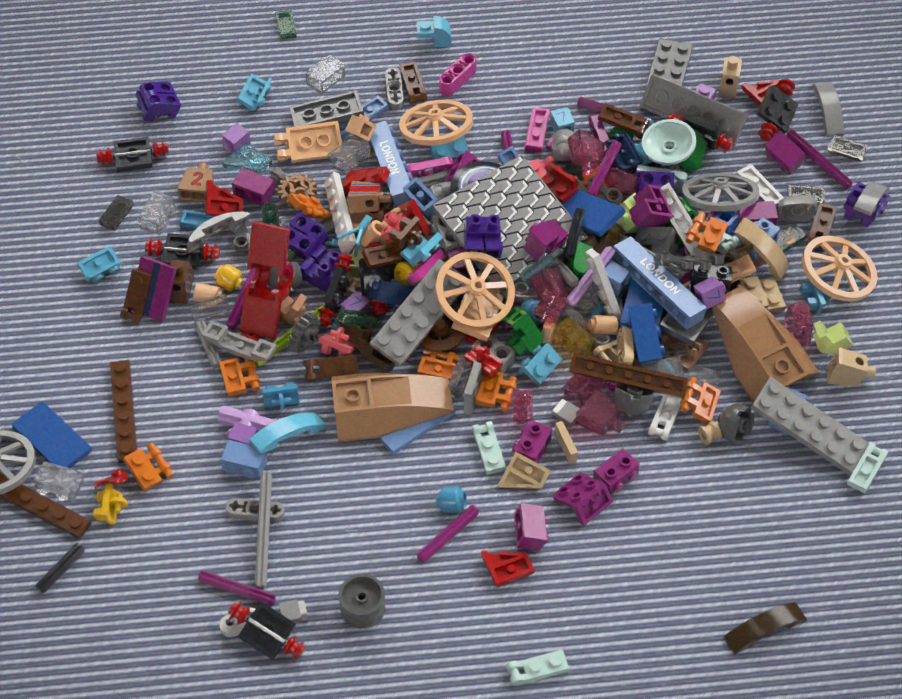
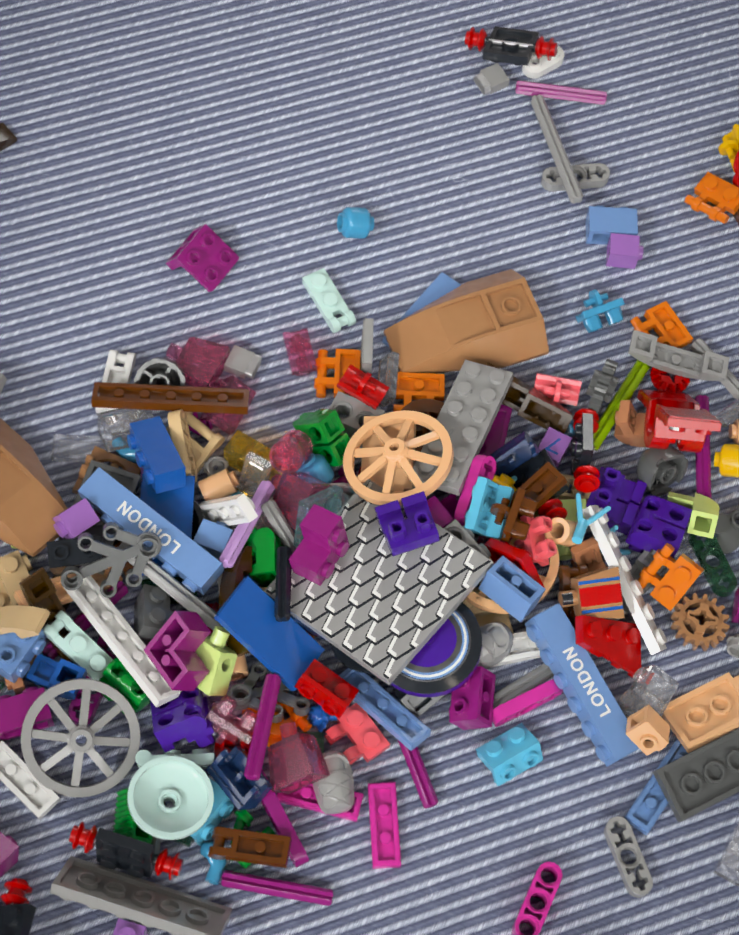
camera: 160 degrees right, 10 degrees up
(248, 417) = (626, 273): lavender piece -> none
(284, 428) = (571, 261): medium azure slope -> none
(331, 366) = (554, 361): reddish brown plate -> none
(357, 318) = (557, 406): clear green beam -> none
(362, 600) = (420, 90): dark grey wheel -> none
(413, 82) = (603, 873): plate -> none
(435, 118) = (535, 788): light nougat wheel -> none
(448, 533) = (349, 190): magenta axle -> none
(507, 566) = (273, 163): red wing -> none
(523, 474) = (276, 270): tan wing -> none
(530, 527) = (255, 203): brick -> none
(533, 441) = (276, 308): magenta brick -> none
(537, 667) = (215, 71): light aqua plate -> none
(540, 363) = (286, 413): medium azure bracket -> none
(562, 120) = (348, 839): medium azure brick -> none
(566, 442) = (235, 317): tan tile -> none
(617, 471) = (166, 292): magenta brick -> none
(705, 403) = (67, 402): orange plate -> none
(710, 432) = (57, 365): tan wheel -> none
(712, 235) = (83, 621): orange plate -> none
(735, 422) = (26, 378): dark grey cylinder -> none

